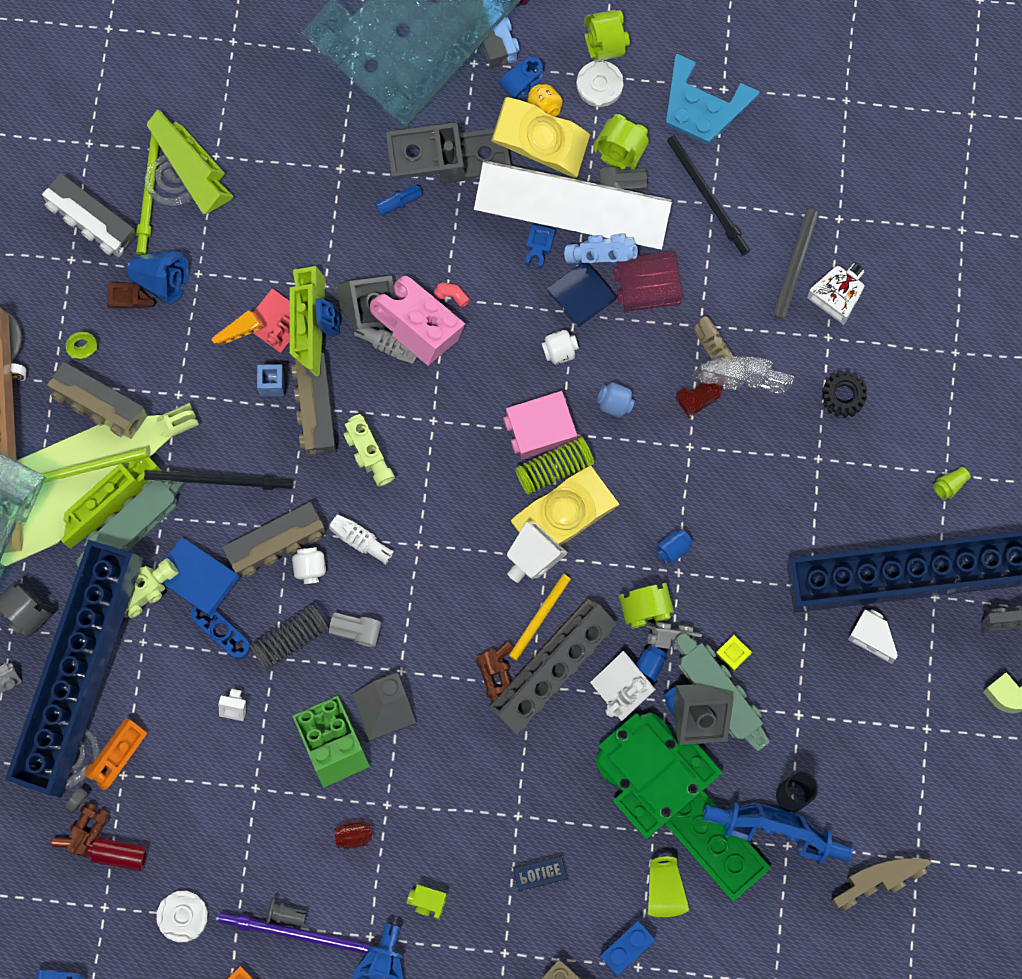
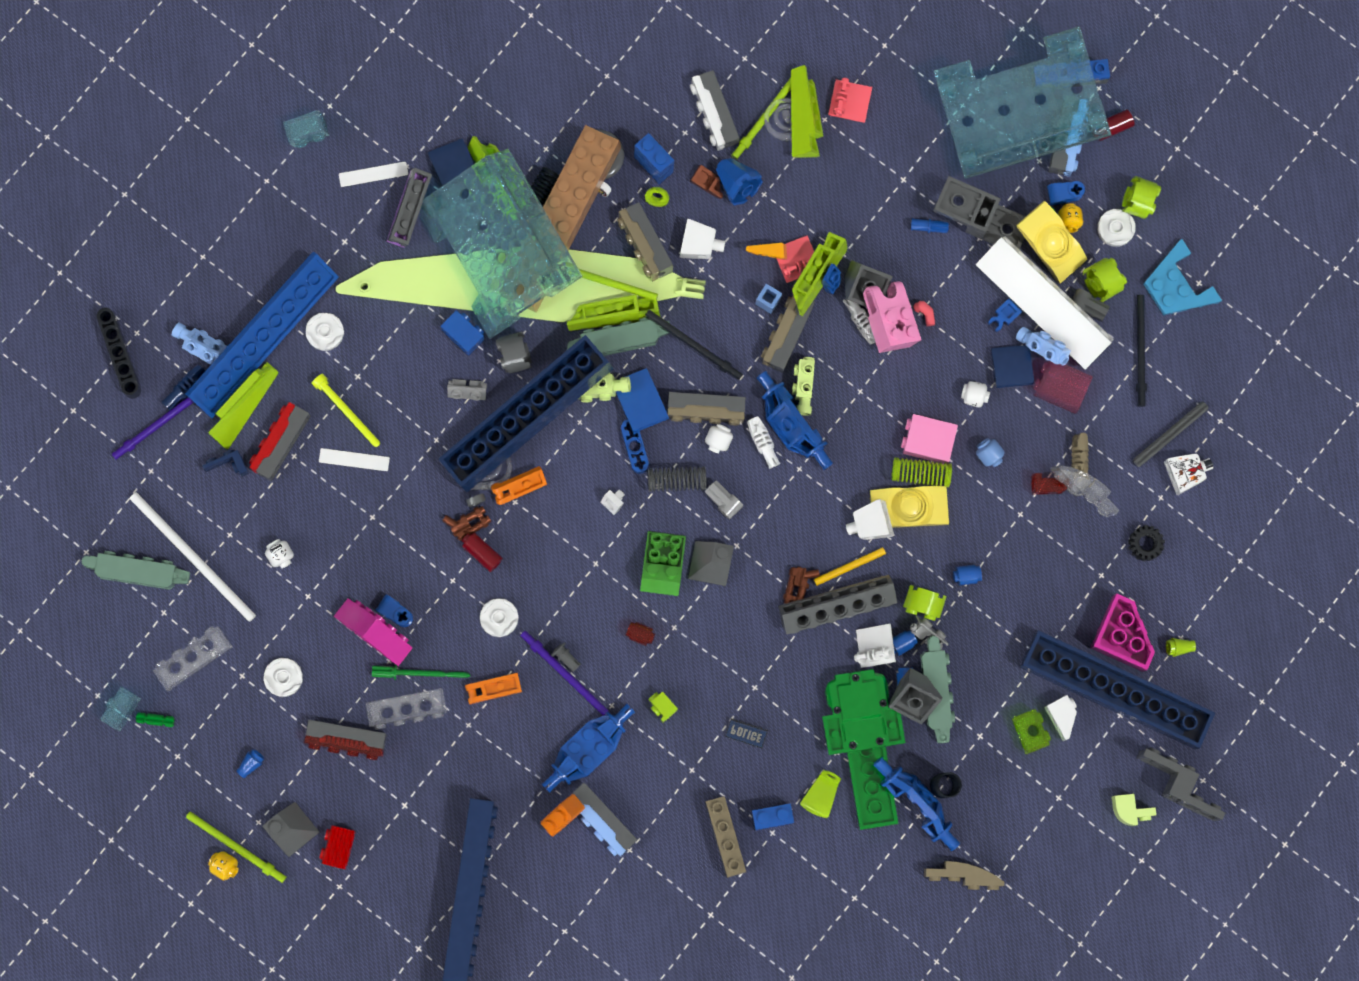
camera: 20 degrees right, 5 degrees up
(51, 305) = (653, 158): none -> blue brick
(157, 365) = (699, 241): none -> white torso
(231, 119) = (850, 100): none -> coral hinge
(377, 500) = (790, 424): none -> blue plate
(733, 653) = (962, 669): neon yellow plate -> none
(836, 673) = (1029, 742): none -> clear neon green brick
(884, 507) = (1124, 635): none -> dark pink brick

